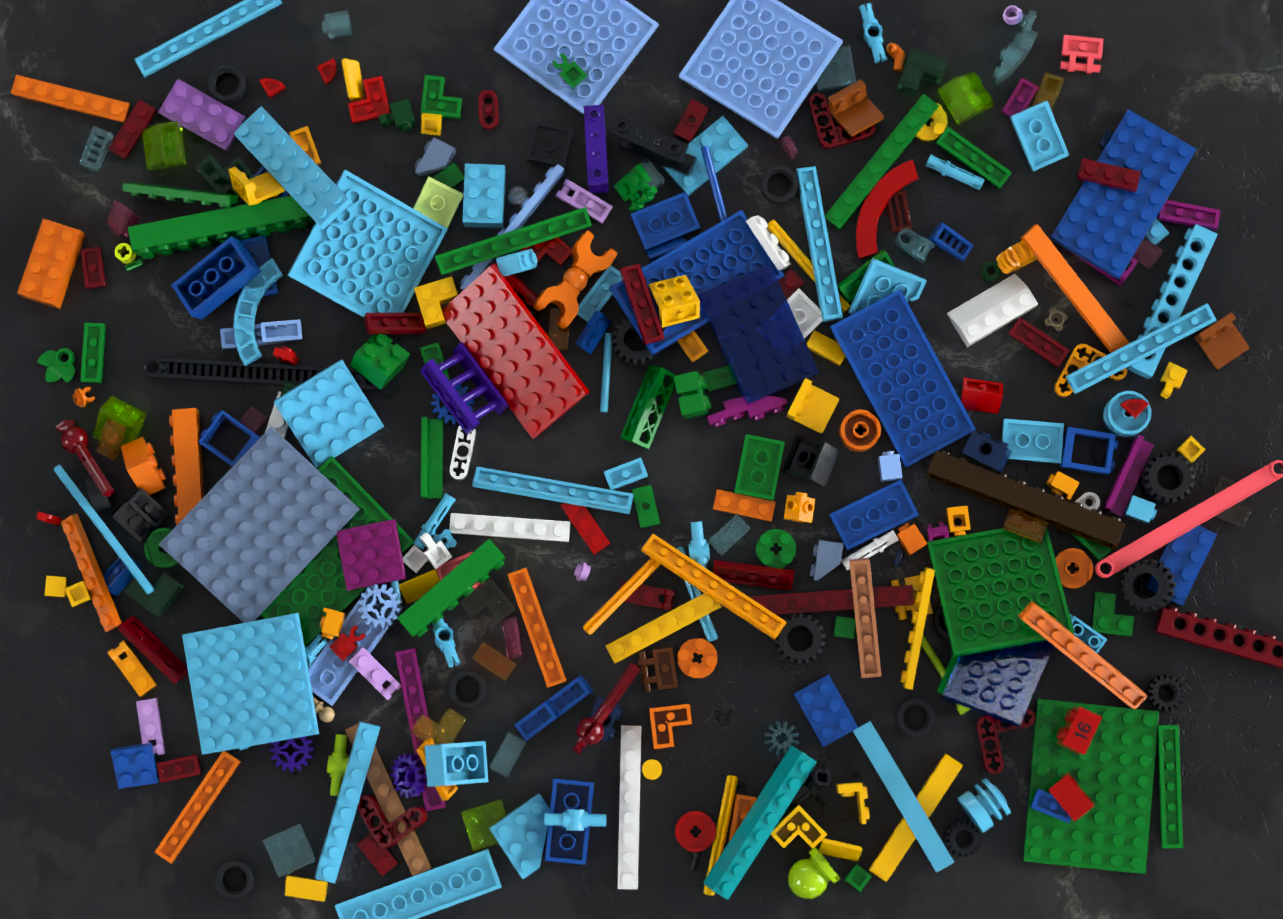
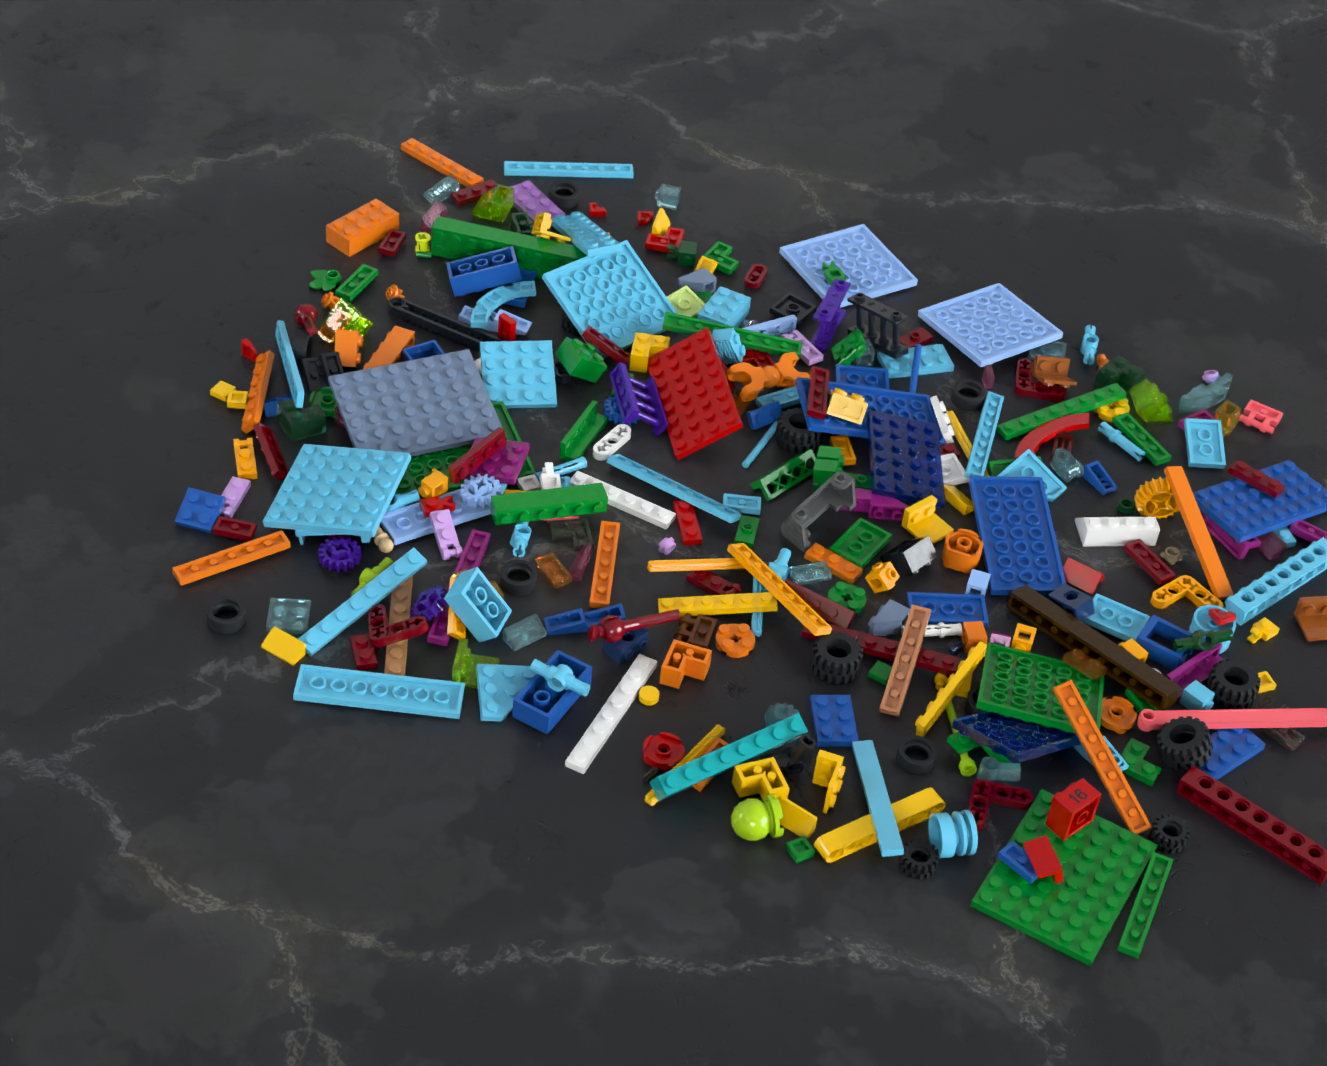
camera: 15 degrees right, 40 degrees down
(138, 351) = (393, 291): none -> orange plate
(187, 195) = (489, 220): green plate -> none
(355, 578) = (477, 455): none -> dark red plate
(707, 435) = (834, 493): none -> dark grey windscreen
(1127, 447) = (1194, 640): none -> dark green pin
(1140, 348) = (1240, 589): medium azure tile -> none

